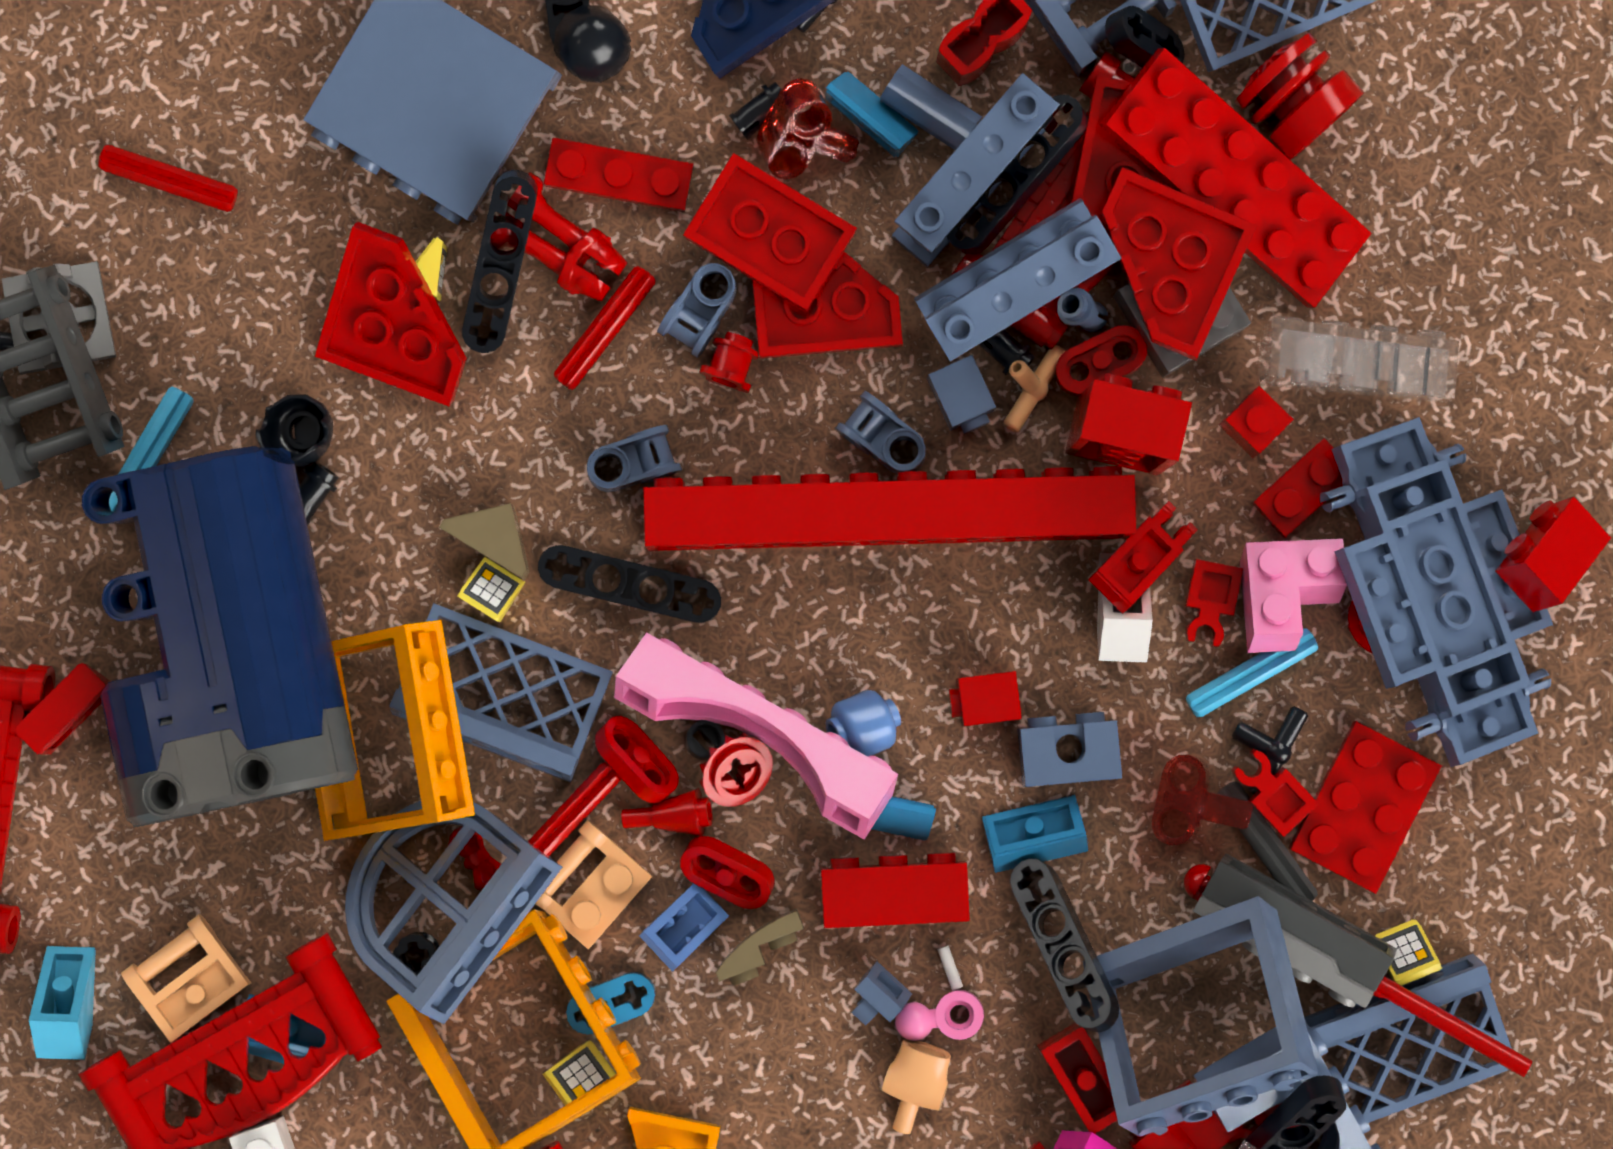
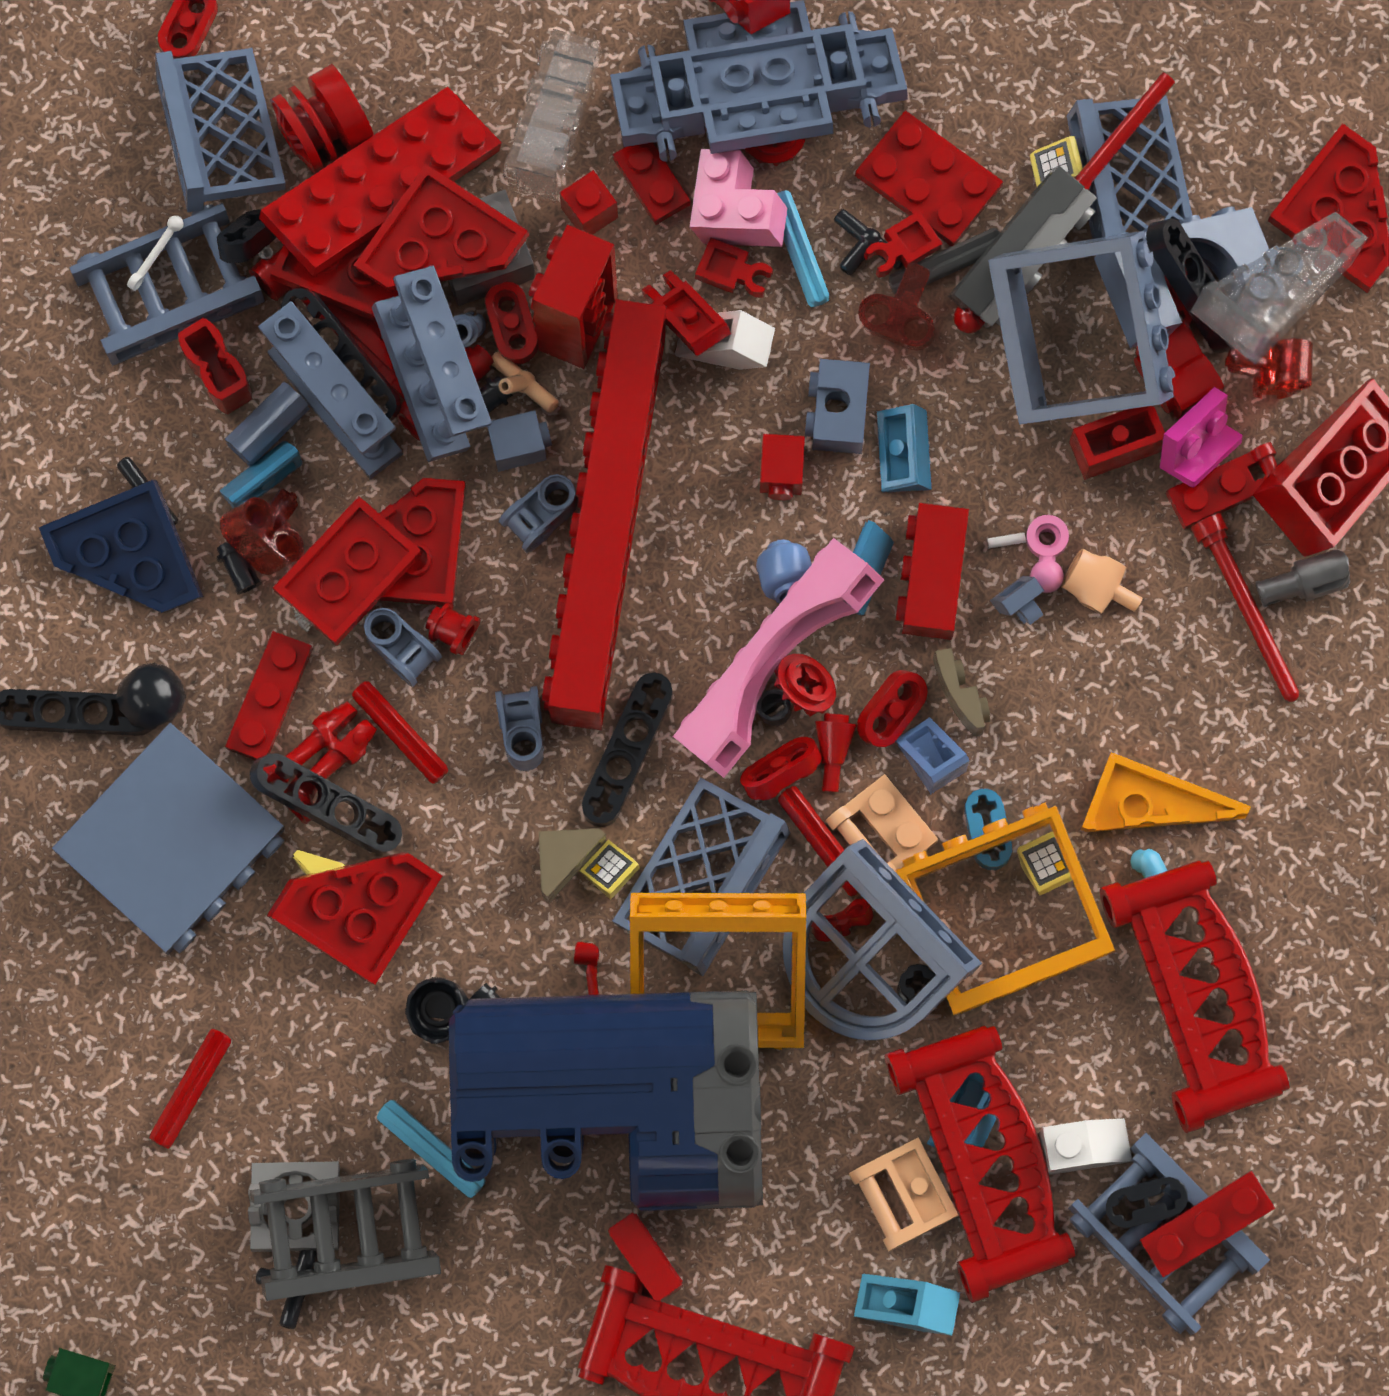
camera: 75 degrees left, 10 degrees down
(391, 583) = (588, 955): none -> red hand
(1059, 947) = (1002, 435): black beam -> none

